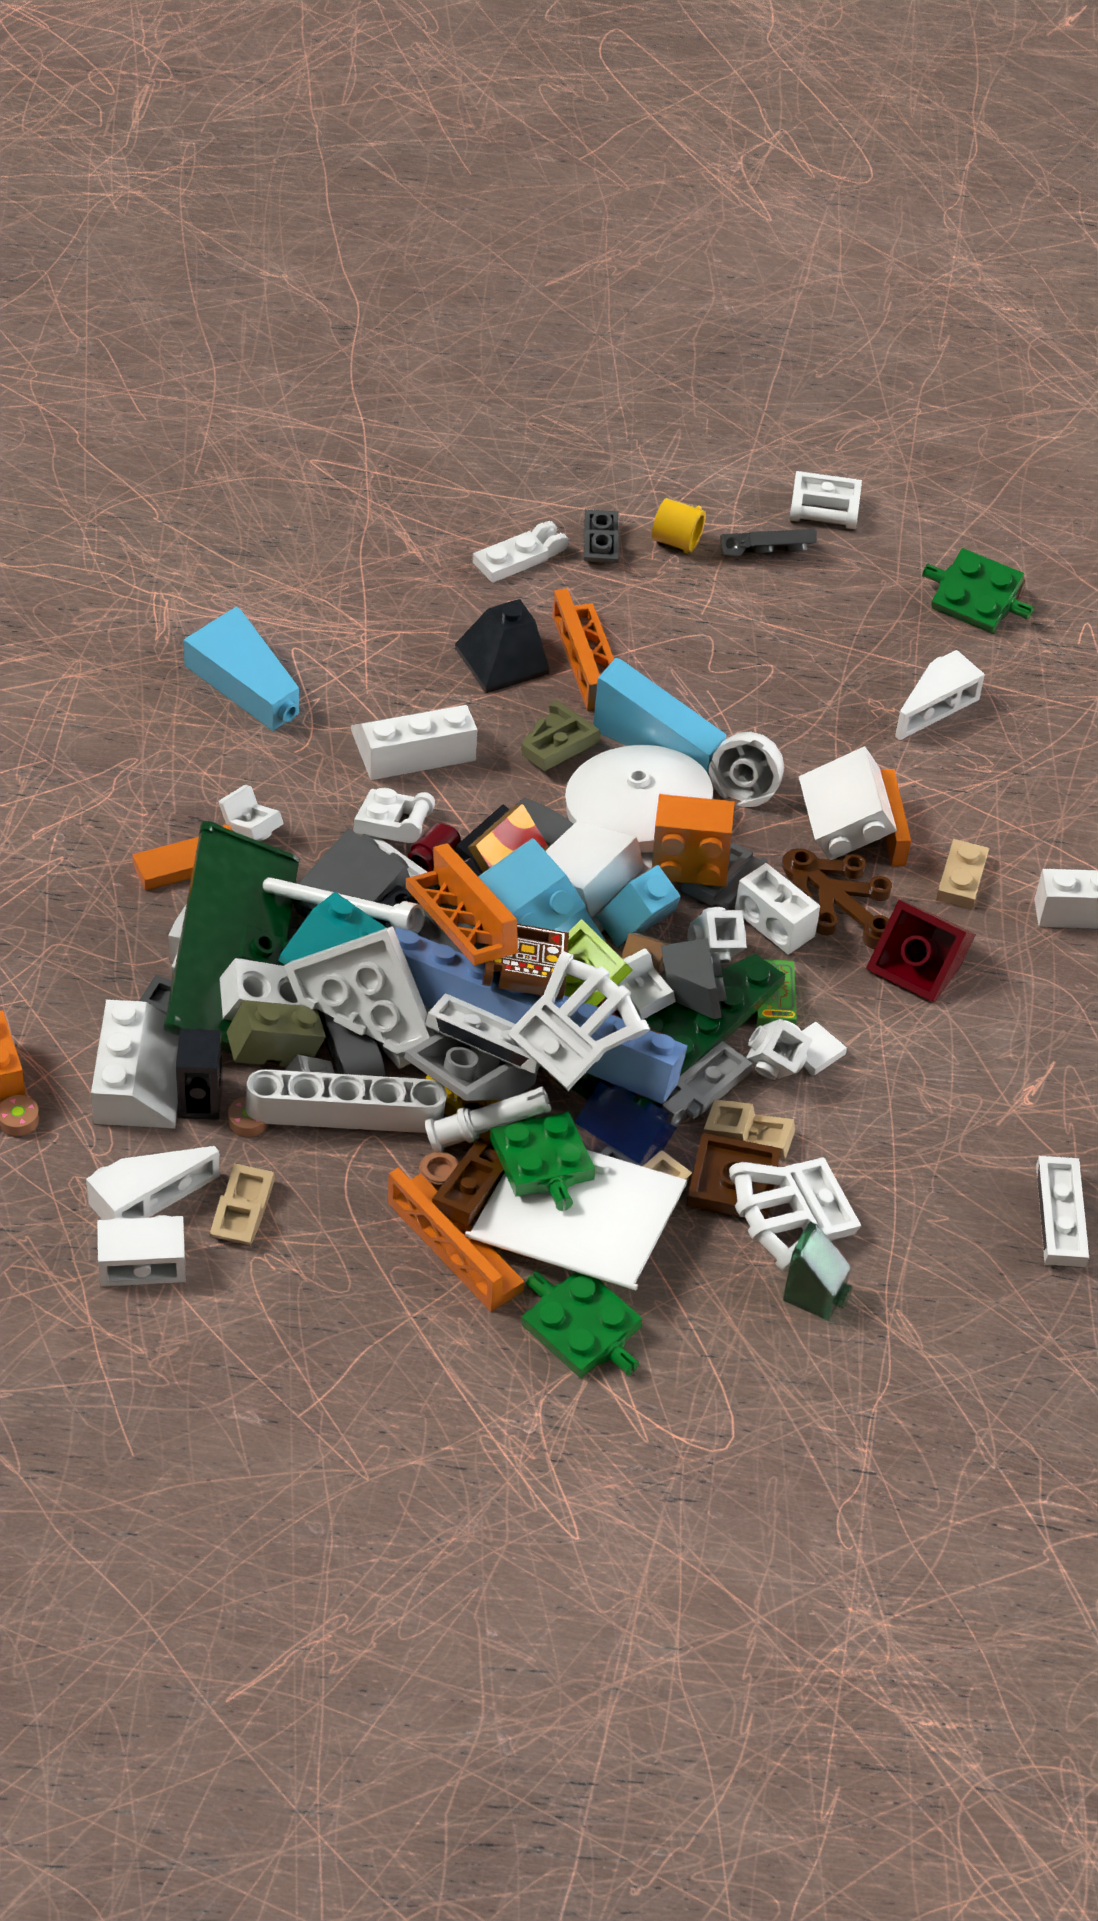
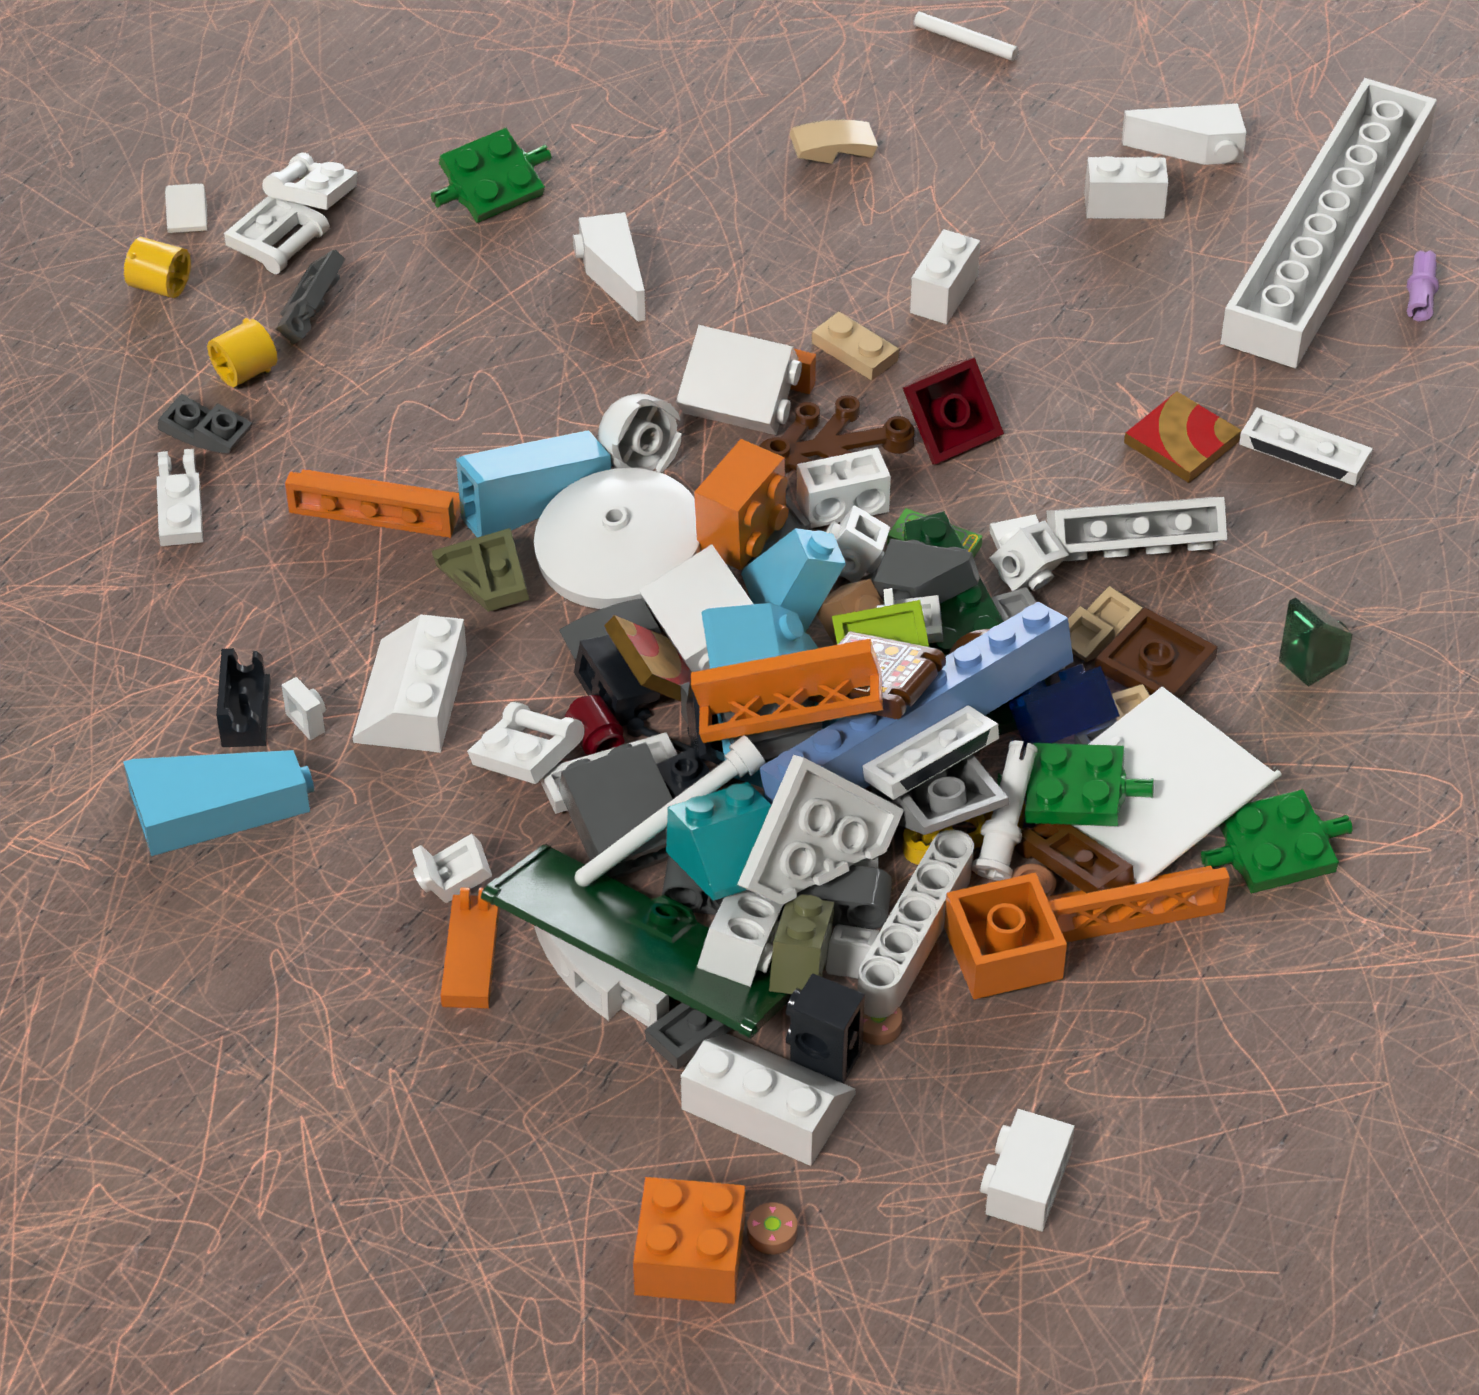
camera: 60 degrees left, 0 degrees up
(150, 1182) = (943, 1150): white slope -> none
(243, 1204) = (1005, 1071): tan slope -> none
(343, 650) = (242, 701): none -> black hinge
(354, 685) = (304, 707): none -> white plate
(354, 1155) = (1004, 935): none -> orange brick
(503, 647) = (326, 564): black slope -> none
(560, 1043) = (992, 691): white plate -> none
(732, 450) = (157, 267): none -> yellow piece
(810, 1192) = (1227, 610): white plate -> none
(813, 445) = (186, 208): none -> white slope
(869, 1113) = (1139, 525): none -> white brick
(887, 496) = (319, 186): none -> white plate
(1015, 1122) = (1182, 436): none -> pearl gold tile

